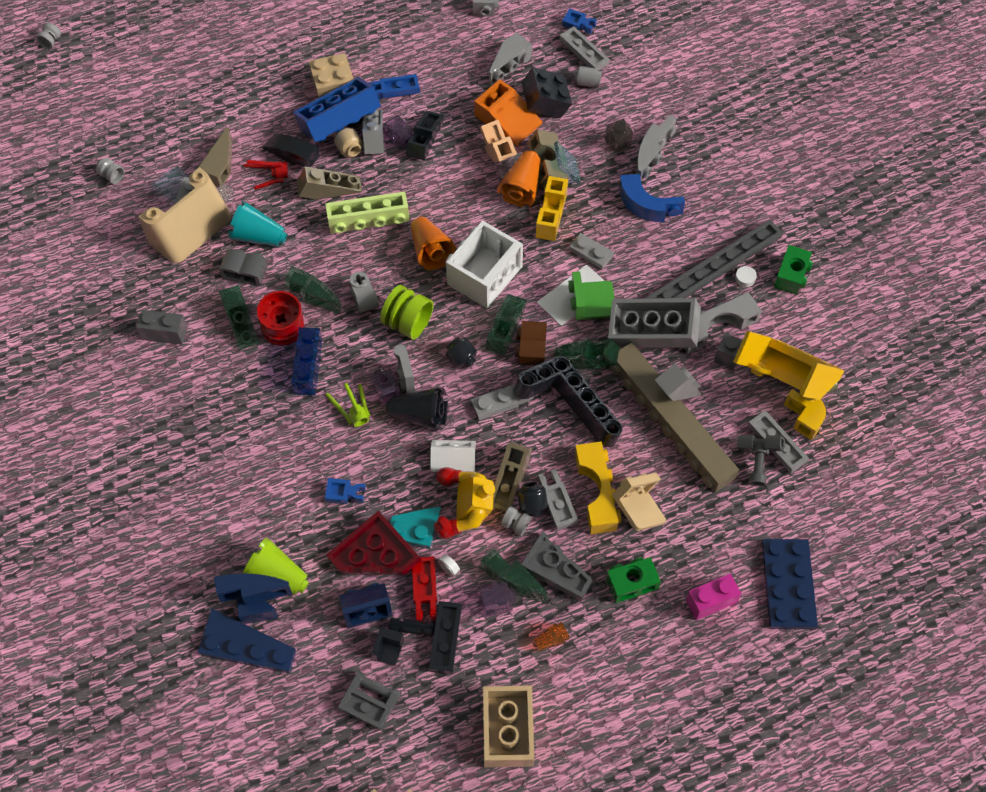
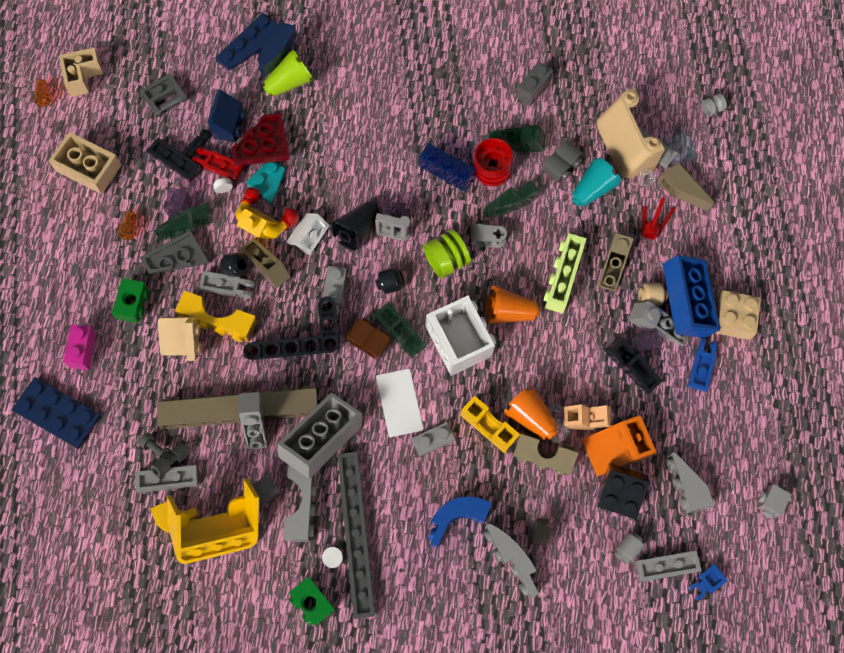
camera: 115 degrees right, 10 degrees up
(292, 150) = (667, 247): black slope -> none
(341, 490) = (324, 145): blue plate -> none
(357, 415) = (380, 183): lime plant -> none
(388, 646) = (193, 122): black panel -> none
(516, 521) = (226, 246): light grey wheel -> none
(567, 162) = (532, 465): clear light blue piece -> none
(589, 355) = (329, 370): clear green slope -> none
(590, 299) = (383, 408): bright green bracket -> none

